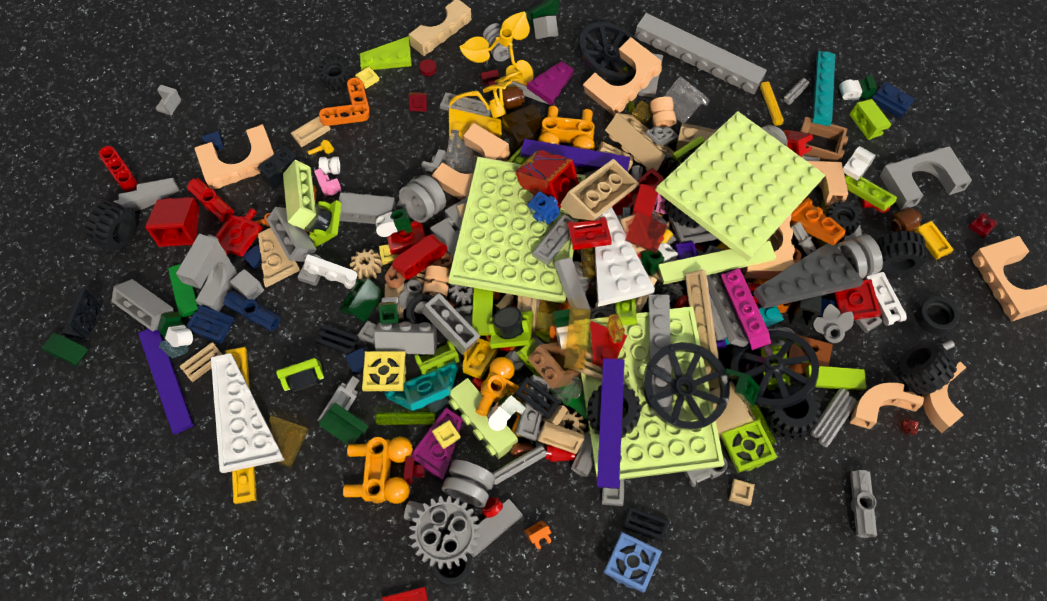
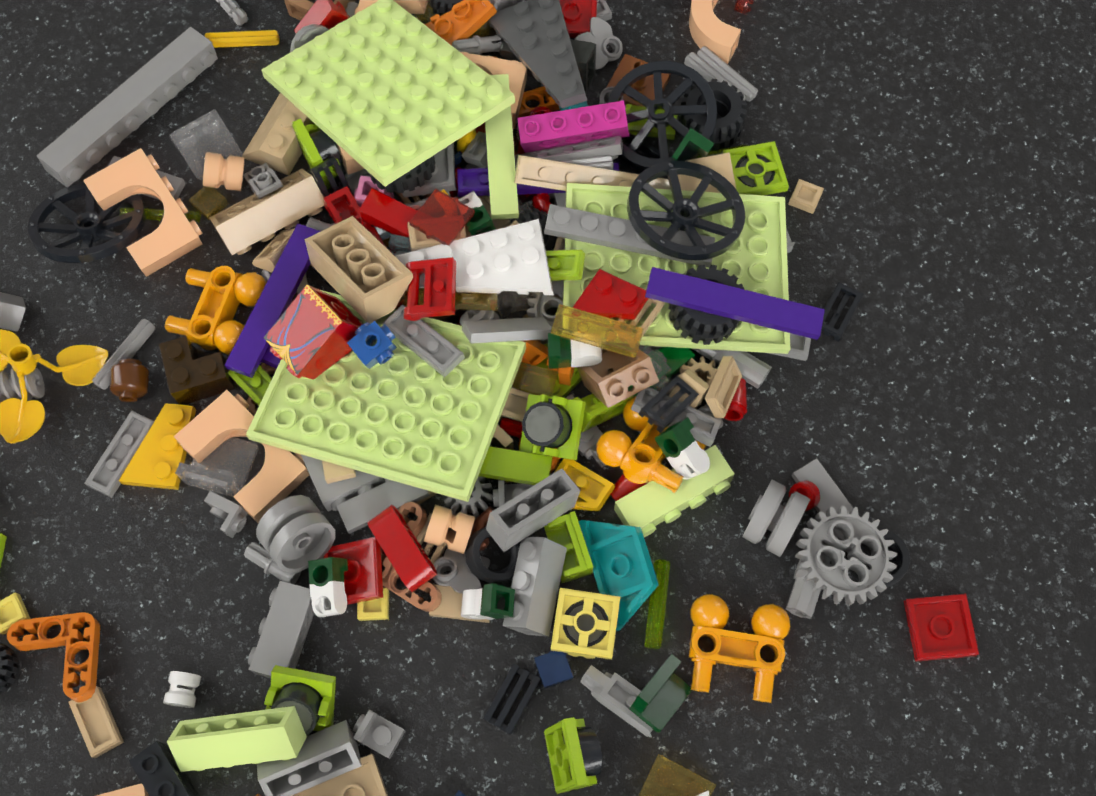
camera: 80 degrees left, 5 degrees up
(325, 145) = (136, 695): yellow hand -> none
(328, 187) = (215, 701): bright pink bracket -> none
(330, 271) = (395, 695): white plate -> none
(362, 299) = (448, 655): dark green panel -> none
(366, 264) = (379, 639): tan gear -> none
(367, 333) = (509, 645): light grey tile -> none
(412, 470) = (741, 600): dark red tile -> none
(417, 101) = (92, 528): dark red tile -> none
(427, 67) = (22, 507): dark red tile -> none
(429, 451) = (708, 562): magenta wing -> none
(446, 434) = (696, 543): light yellow tile -> none
(489, 77) = (82, 408): dark red tile -> none
(496, 105) = (142, 401): yellow plant -> none
(519, 464) = (748, 452): light grey axle -> none
(521, 448) = (724, 440): copper arm -> none
(537, 532) = (843, 441): orange tile -> none
(550, 83) = (118, 317): magenta wing -> none
(615, 328) = (596, 274): clear yellow tile -> none
(631, 563) = (893, 332): medium blue piece -> none
(839, 378) = (673, 49): lime tile -> none
(864, 517) = (834, 71): light grey piece -> none

